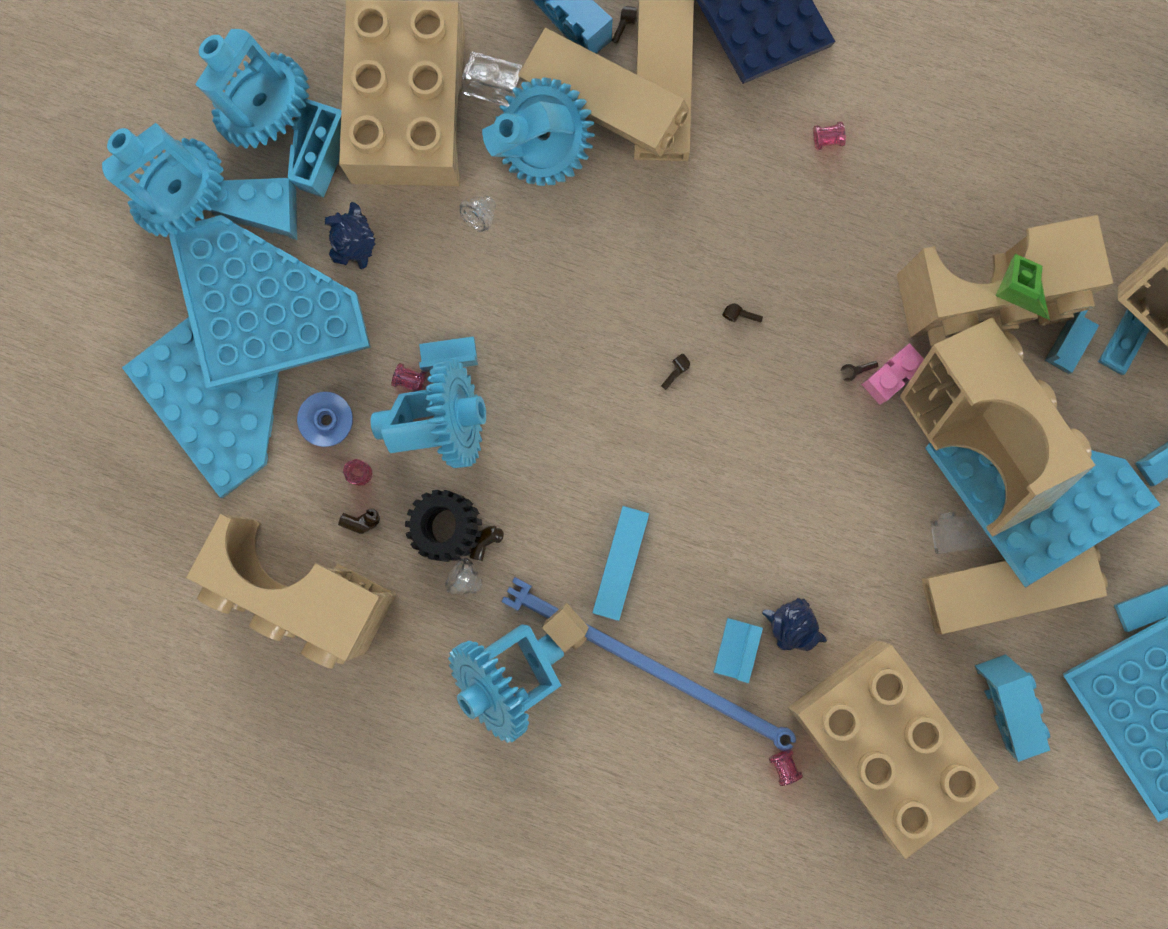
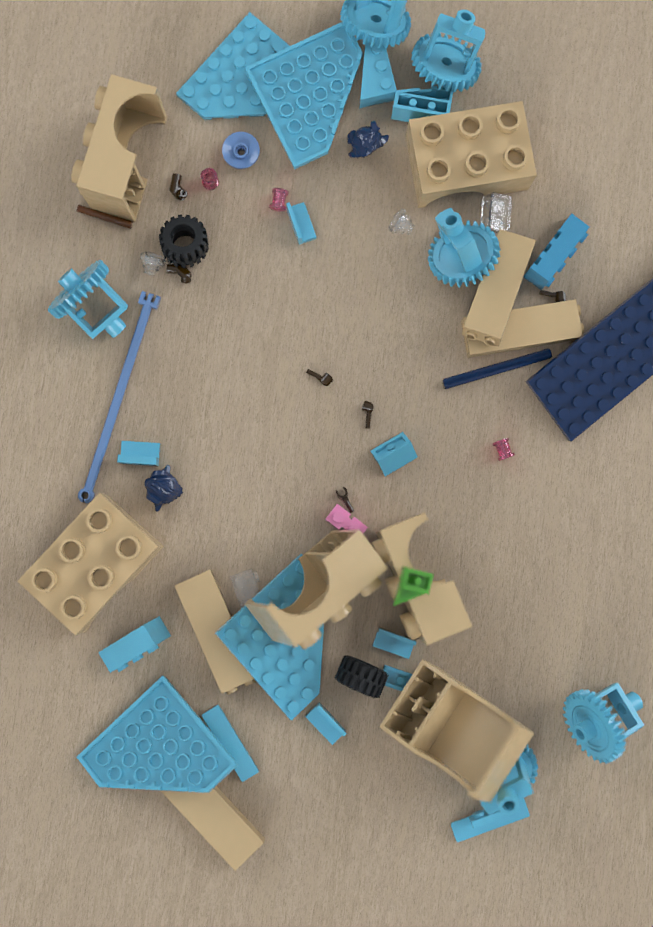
camera: 65 degrees right, 0 degrees up
(380, 636) = (104, 216): none -> reddish brown bar
(454, 423) = (255, 230): medium azure piece -> none
(566, 628) = (131, 335): tan brick -> none
(620, 563) = (182, 364): medium azure tile -> none
(712, 122) = (497, 368): none -> dark blue axle
(785, 767) = (66, 499): clear pink bush -> none
(805, 288) = (394, 453): none -> medium azure panel
(1119, 393) = (361, 676): none -> black tyre

